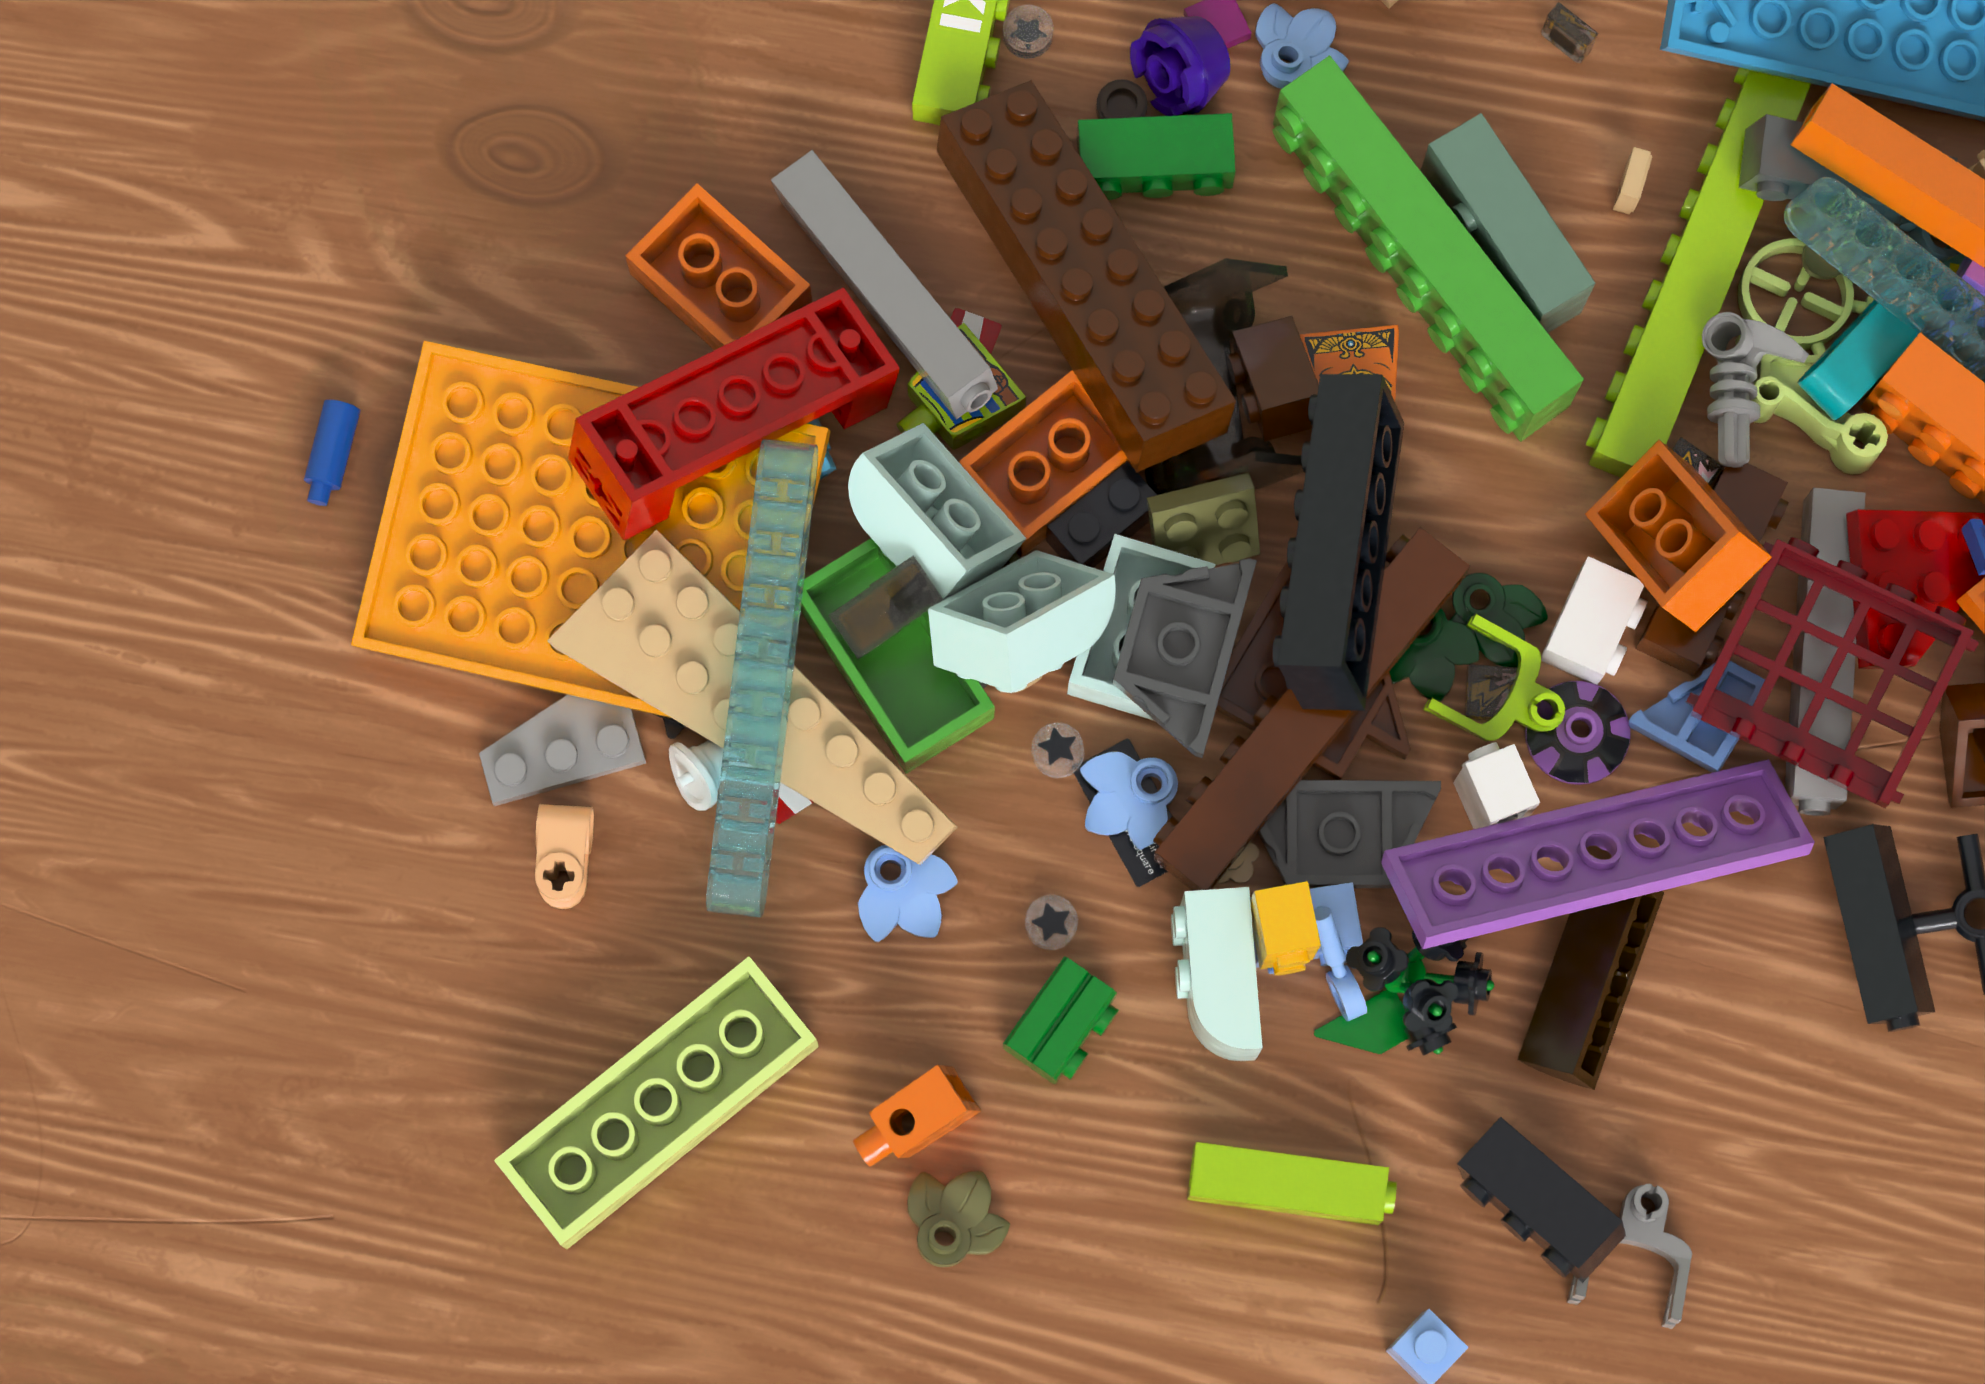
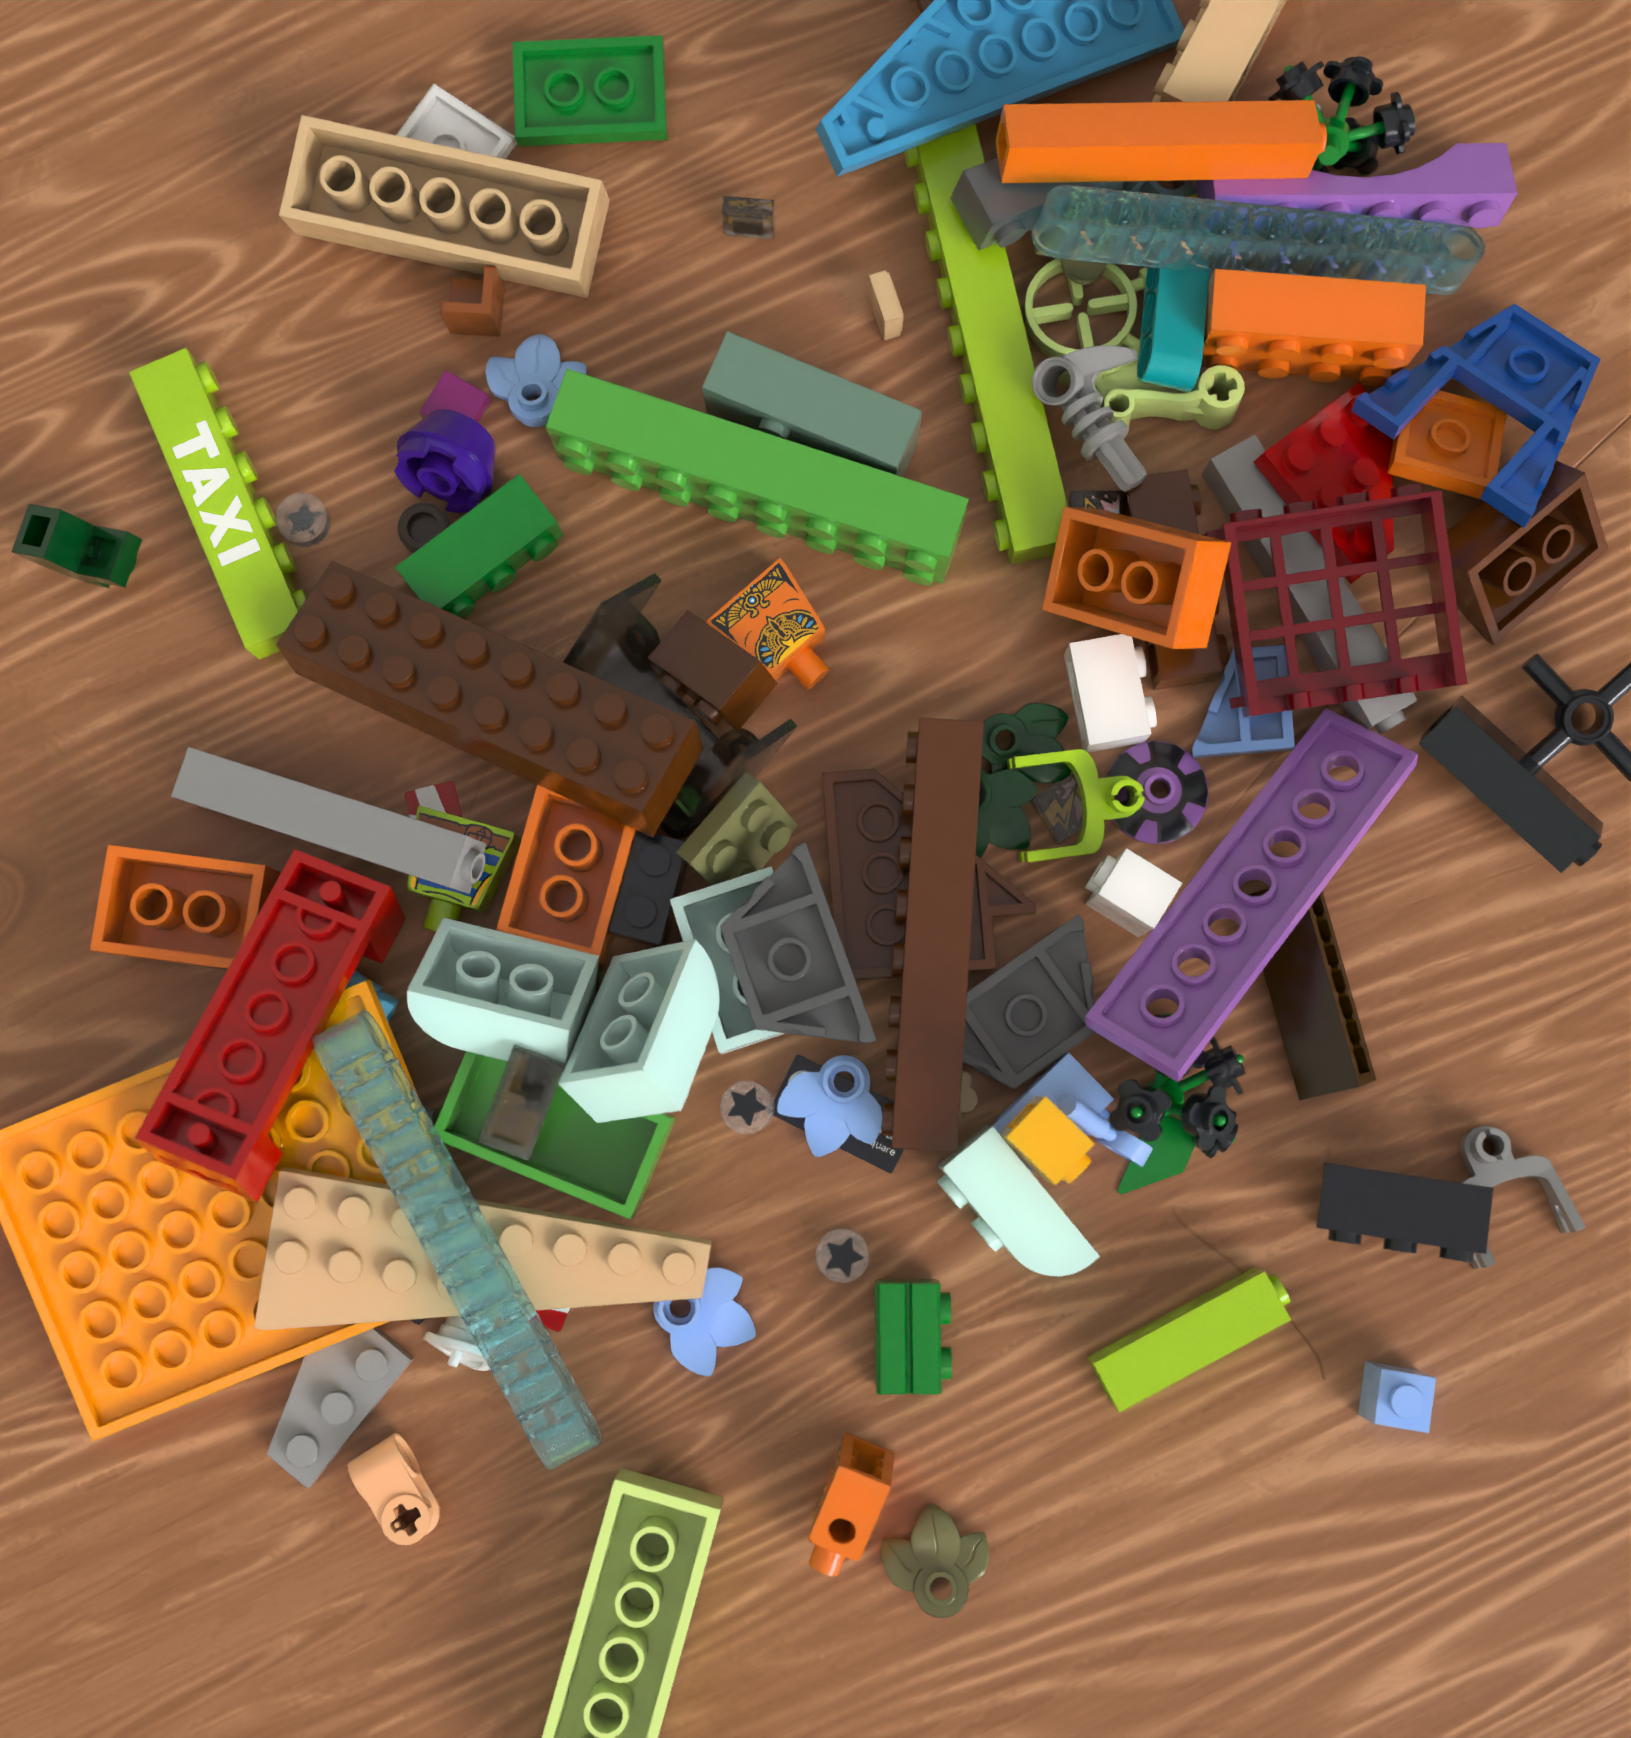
camera: 30 degrees left, 5 degrees up
(1339, 542) = (865, 780): black brick -> none

